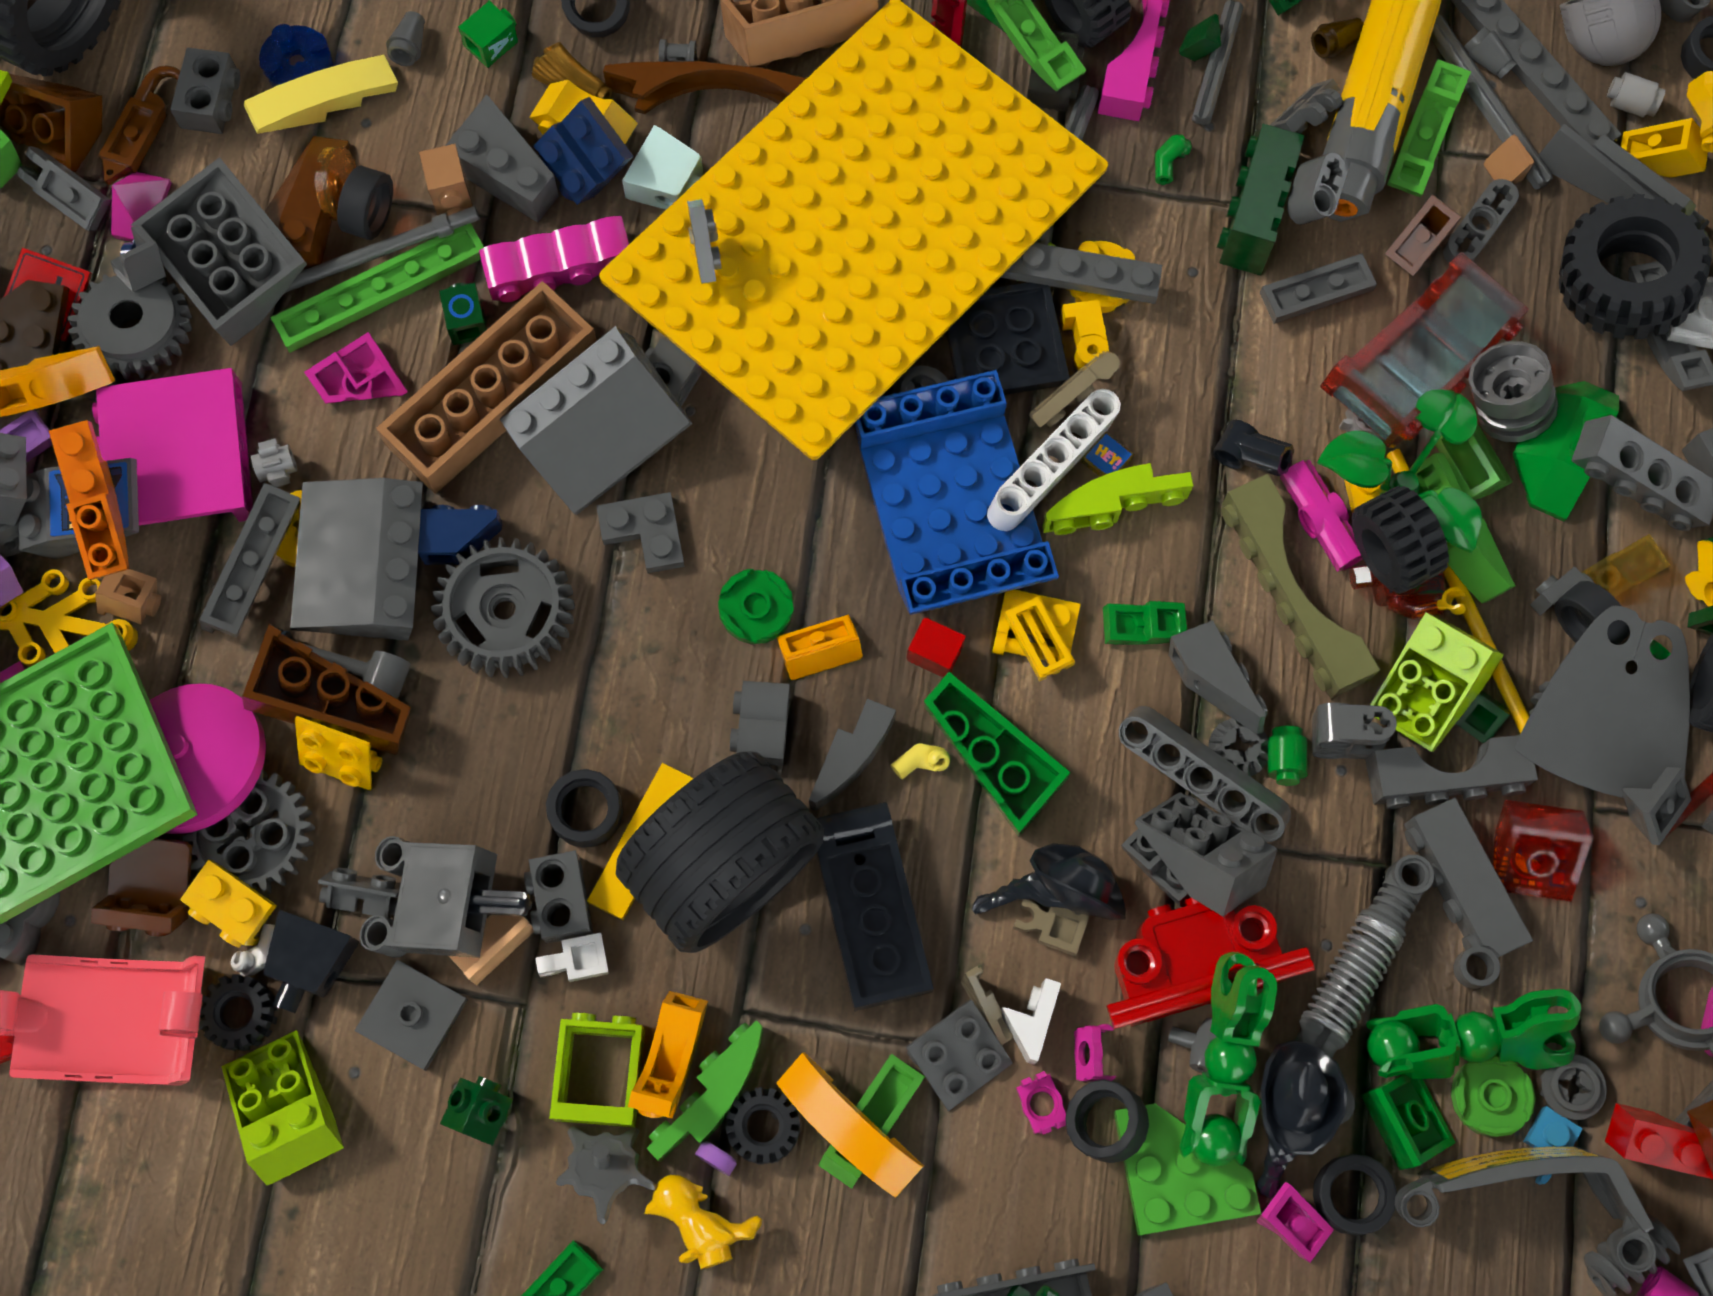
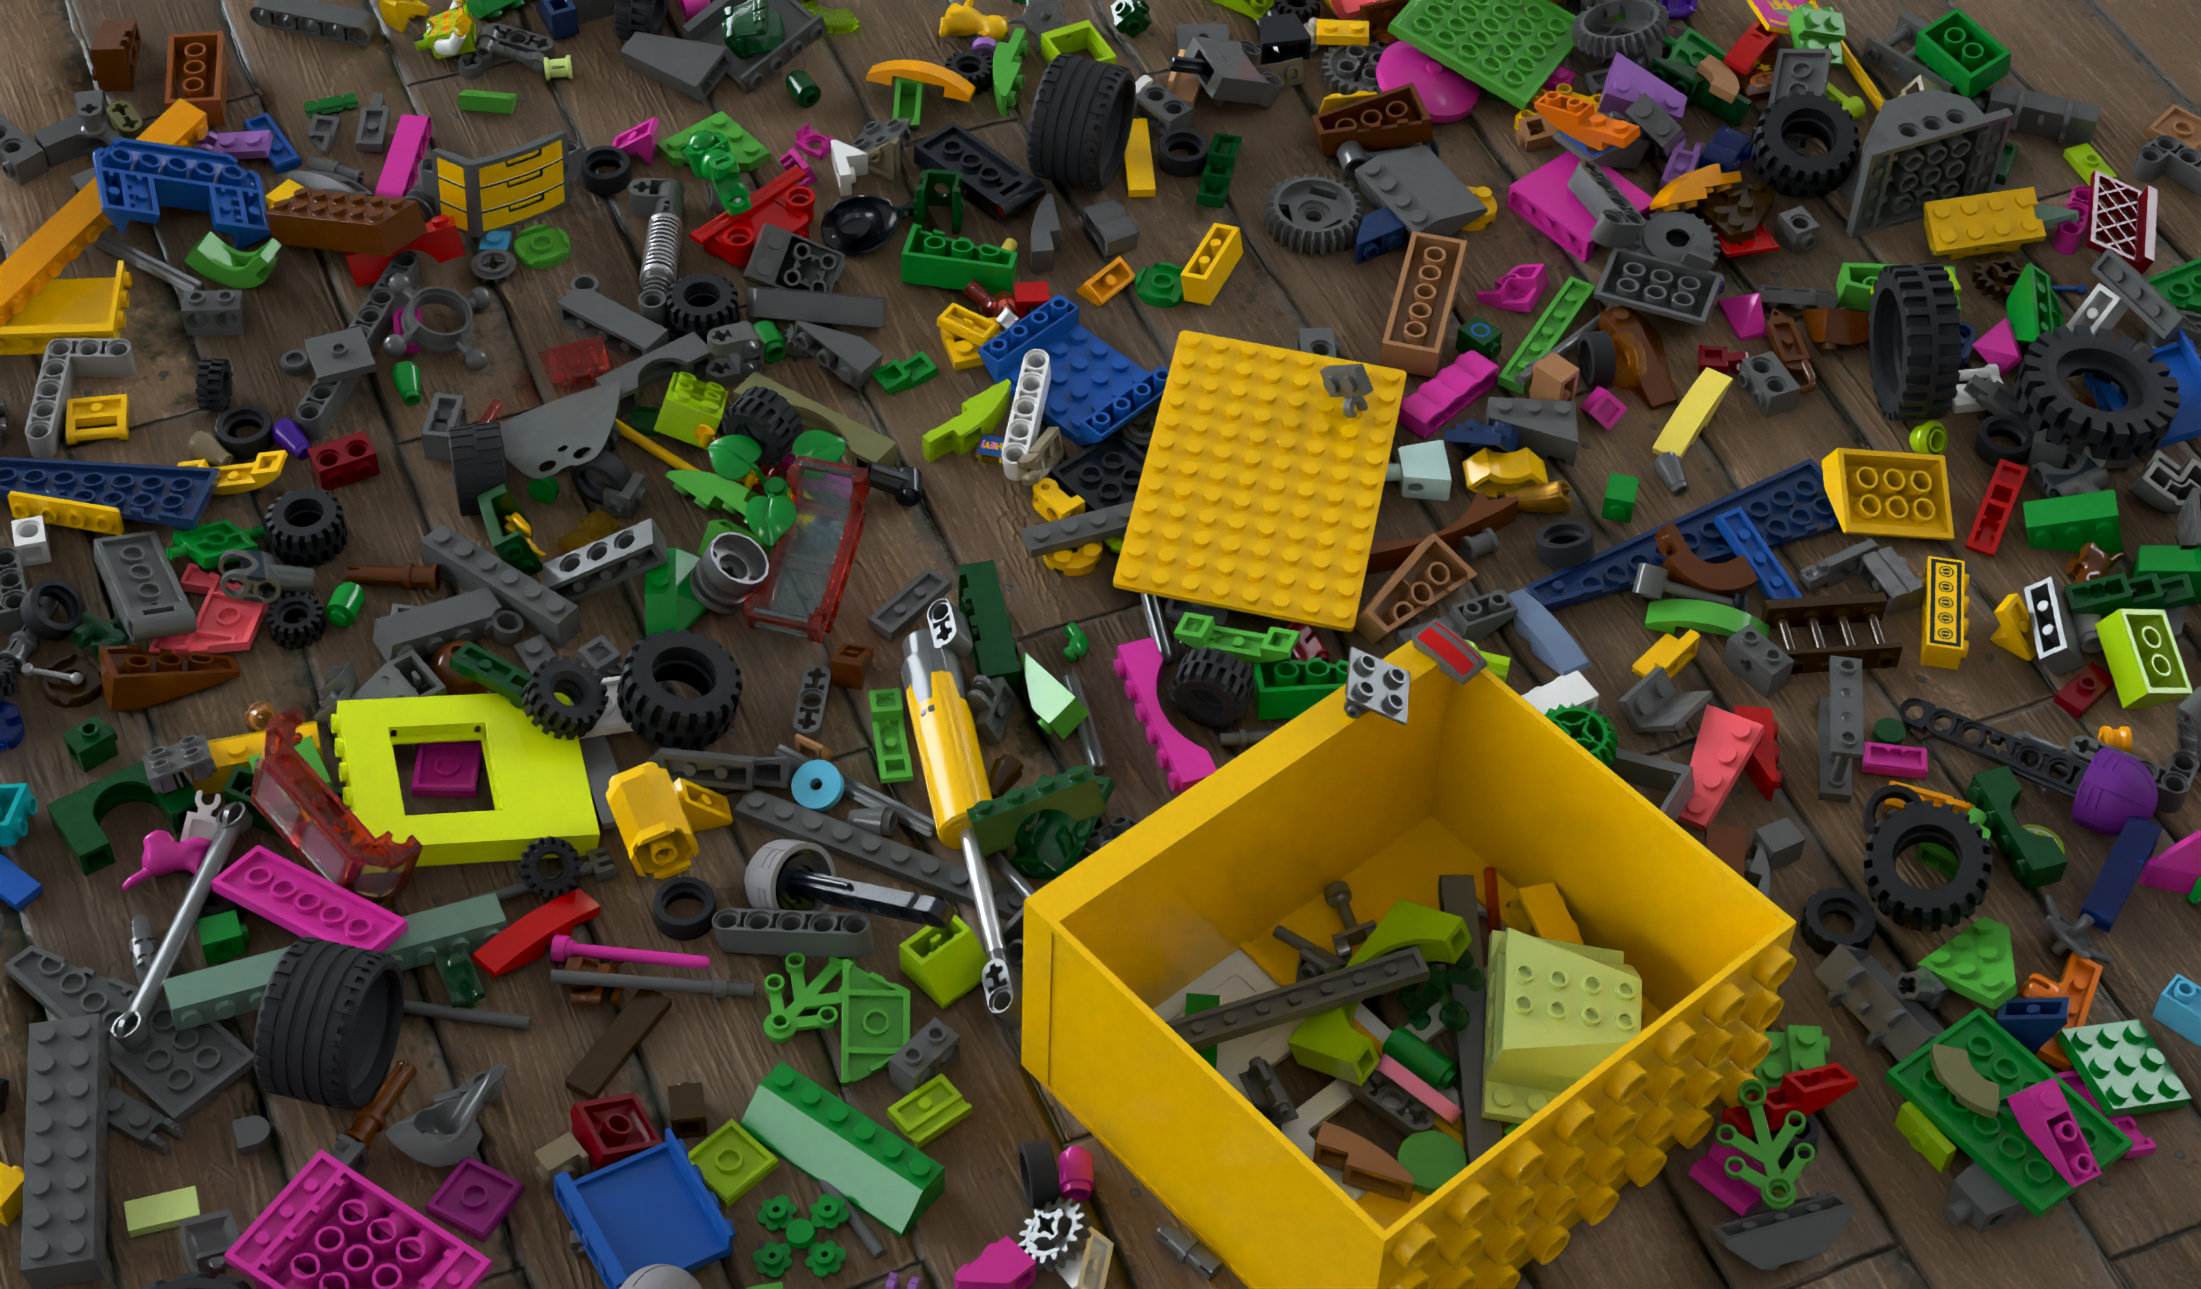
camera: 150 degrees right, 25 degrees down
(173, 379) = (1616, 217): none -> dark grey beam
(230, 148) = (1719, 359): none -> dark red plate
(249, 561) = (1482, 169): dark grey fence -> none
(274, 463) = (1517, 220): light grey gear -> none
(291, 41) = (1739, 422): clear blue plate -> none
(401, 154) = (1603, 407): none -> dark pink panel
(559, 754) = (1219, 170): none -> dark green slope
(596, 420) = (1342, 308): dark grey slope -> none
(645, 519) = (1262, 297): dark grey plate -> none
(670, 1056) = (1036, 47): light orange arch -> none
(688, 579) = (1211, 264): none -> yellow brick
(944, 839) = (927, 195): none -> dark green piece
(980, 650) = (993, 305): none -> clear red arm
(1008, 1215) = (803, 88): none -> dark green brick
(1078, 1113) = (771, 135): black tyre -> none
(1202, 39) = (1107, 722): dark green slope -> none
(1243, 84) = (1051, 701): none -> slope
(1301, 1106) = (666, 168): black hat -> none
(1369, 821) = (701, 304): none -> black tyre
(1408, 1121) = (591, 207): green slope -> none
(1513, 1033) = (571, 248): green piece -> none
(1528, 114) = (808, 776): none -> medium azure piece
(1635, 95) = (737, 839): light grey brick -> none
(1658, 808) = (507, 396): dark grey slope -> none

